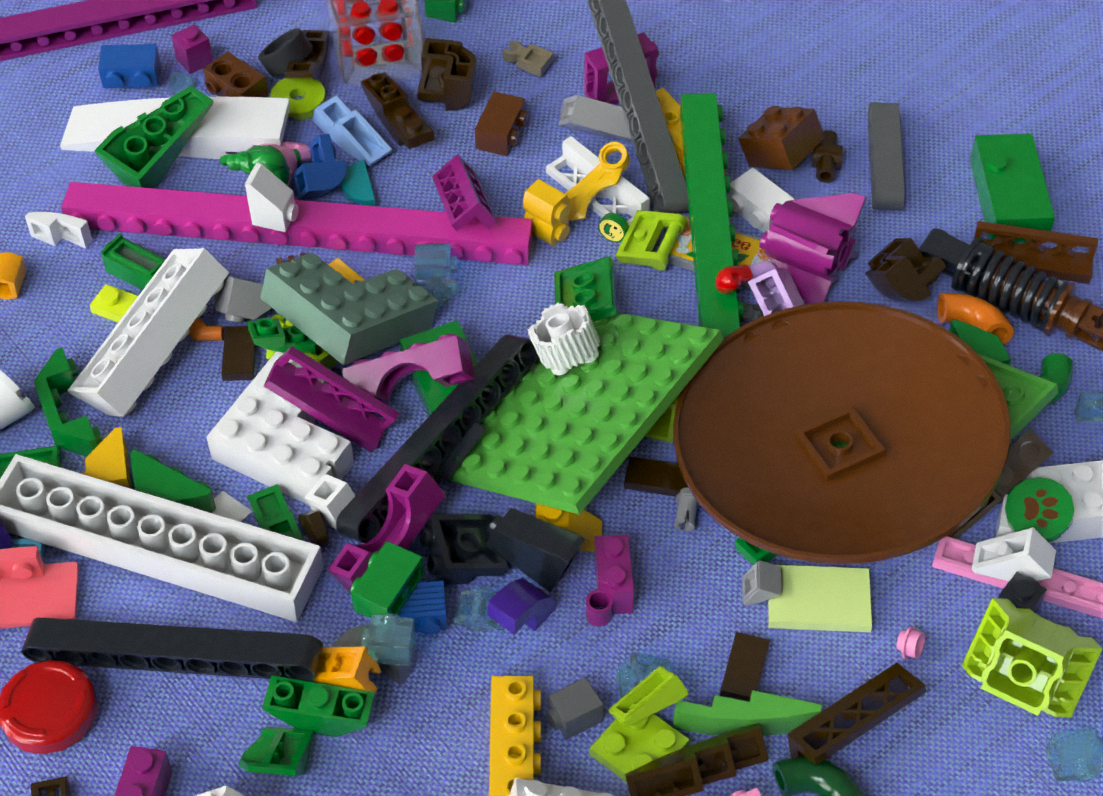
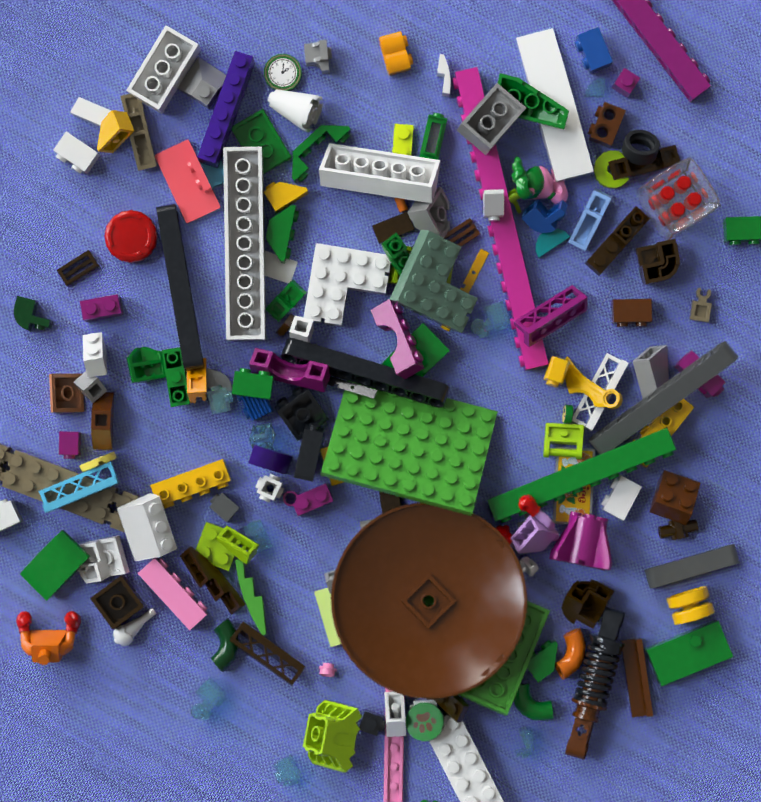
camera: 70 degrees right, 35 degrees up
(152, 175) = (491, 119): none -> light grey slope
(327, 401) = (360, 301): magenta fence -> none
(564, 338) = (448, 421): white brick -> none
(569, 626) = (262, 488): none -> white brick
(588, 285) = (501, 417): green tile -> none
(744, 666) = (283, 586): dark brown tile -> none
(943, 160) = (690, 605): none -> yellow wheel

